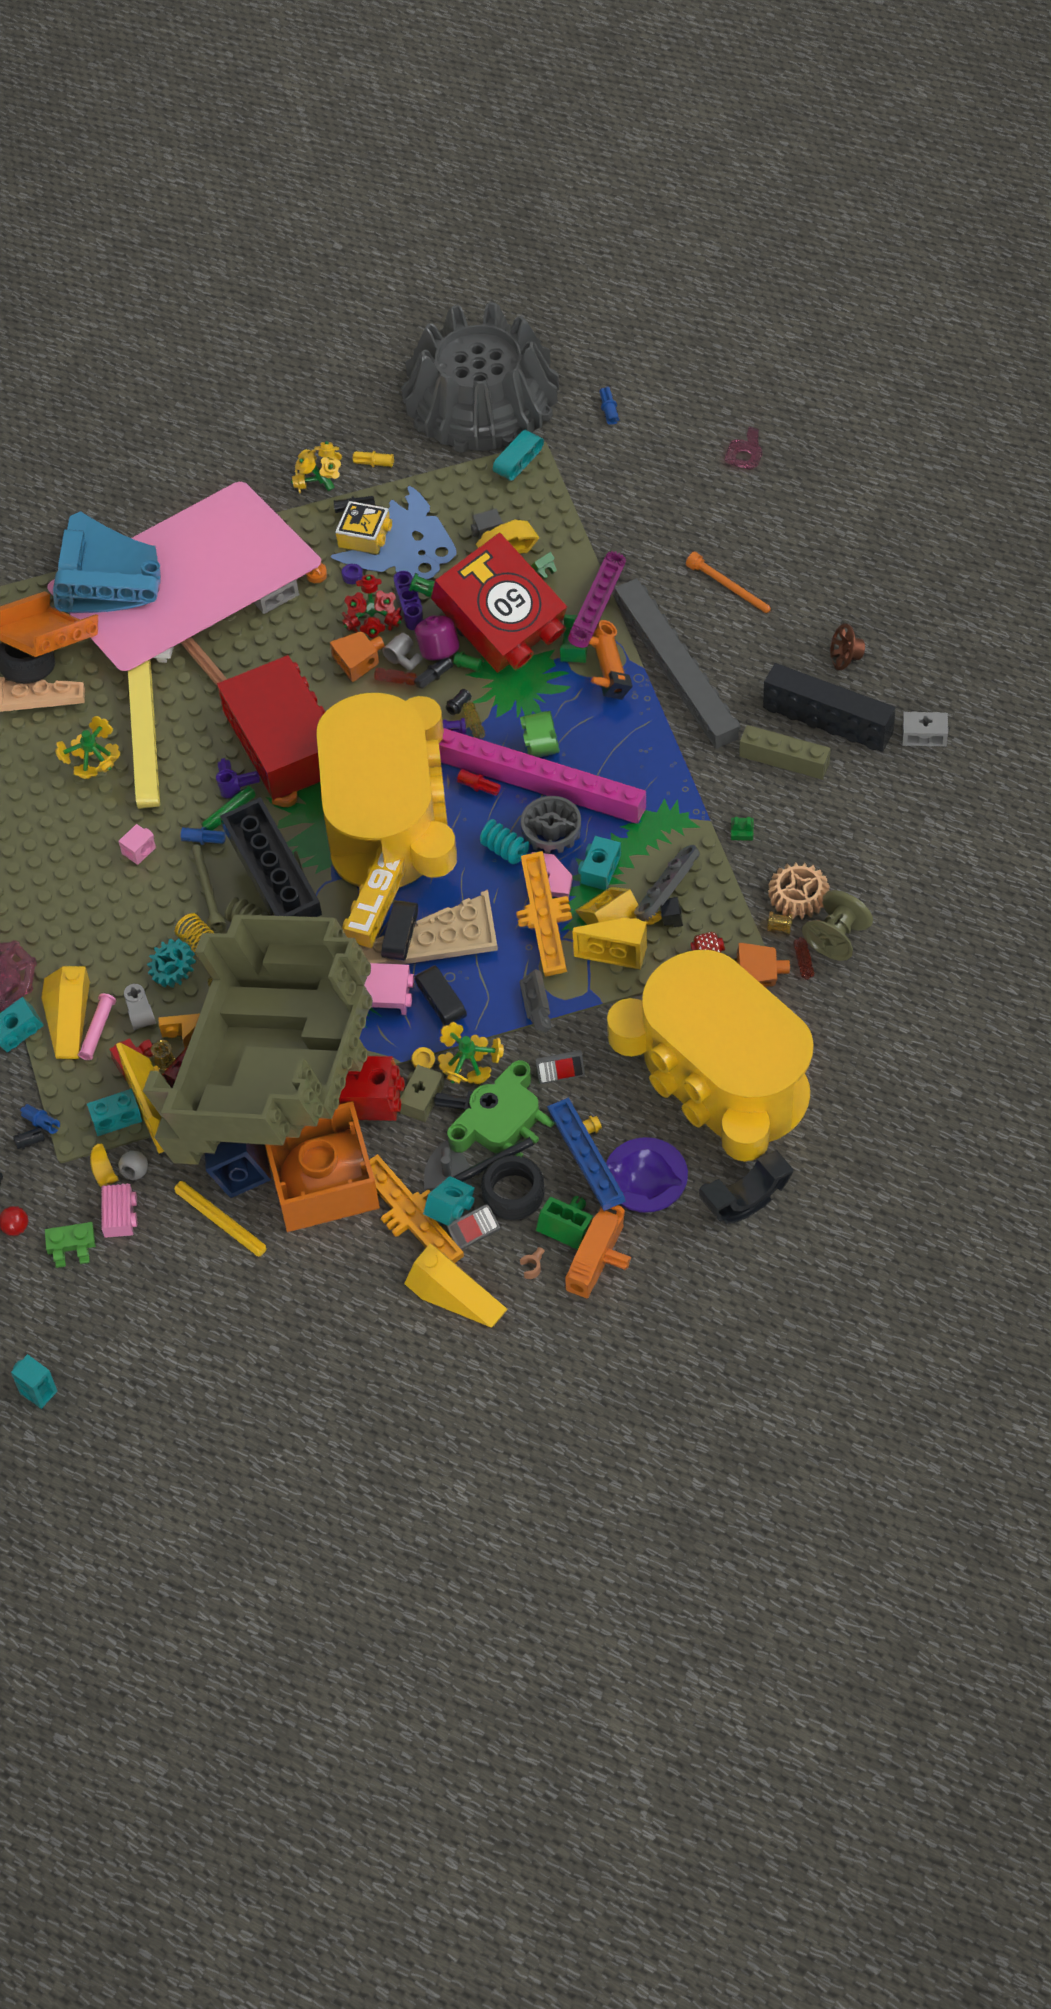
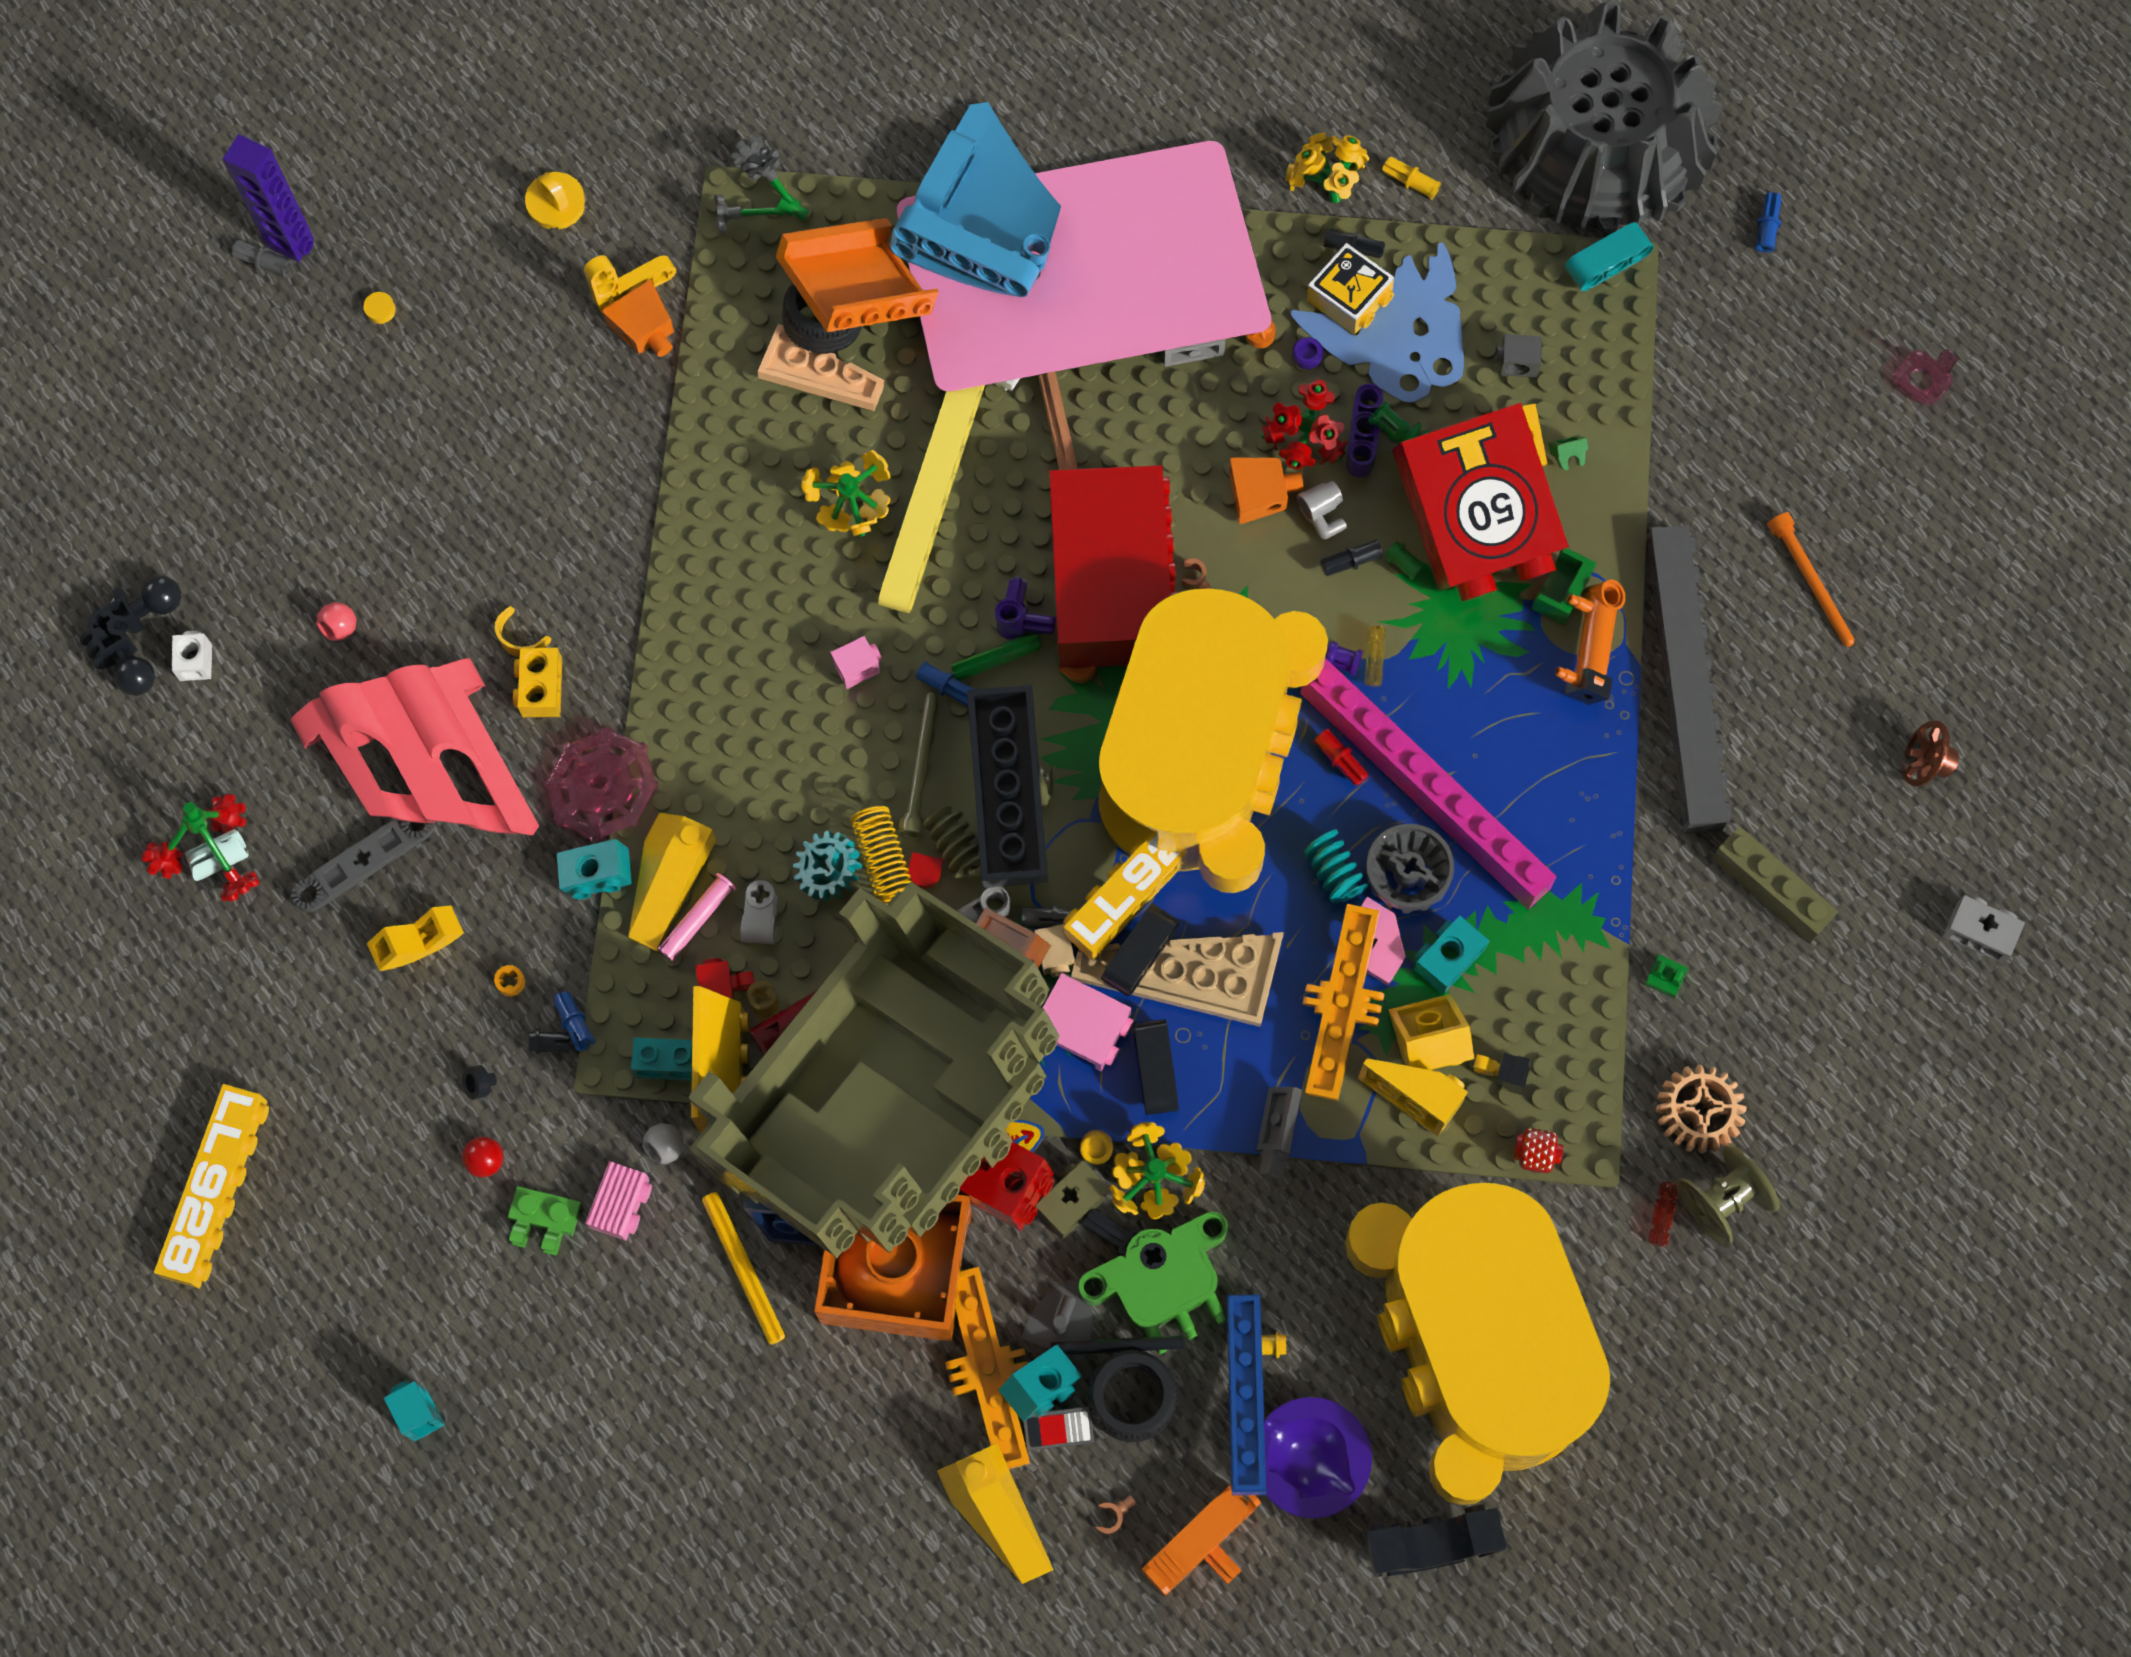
camera: 20 degrees right, 15 degrees up
(101, 1166) = (625, 1130): yellow helmet -> none
(178, 1026) = (812, 970): light orange slope -> none
(395, 676) = (1298, 541): clear red axle -> none
(437, 637) = (1376, 512): magenta head -> none
(454, 705) = (1366, 618): black pin -> none
(517, 532) = (1550, 388): yellow brick -> none
(540, 734) = (1451, 723): bright green brick -> none
(560, 1067) = (1269, 1240): slope -> none
(564, 1221) = (1179, 1479): green brick -> none
(596, 599) = (1617, 542): magenta plate -> none
(667, 882) = (1526, 1029): dark grey piece -> none
(761, 963) = (1595, 1206): orange torso -> none
(780, 922) = (1654, 1147): clear yellow bush -> none
(828, 707) = (1863, 844): black brick -> none

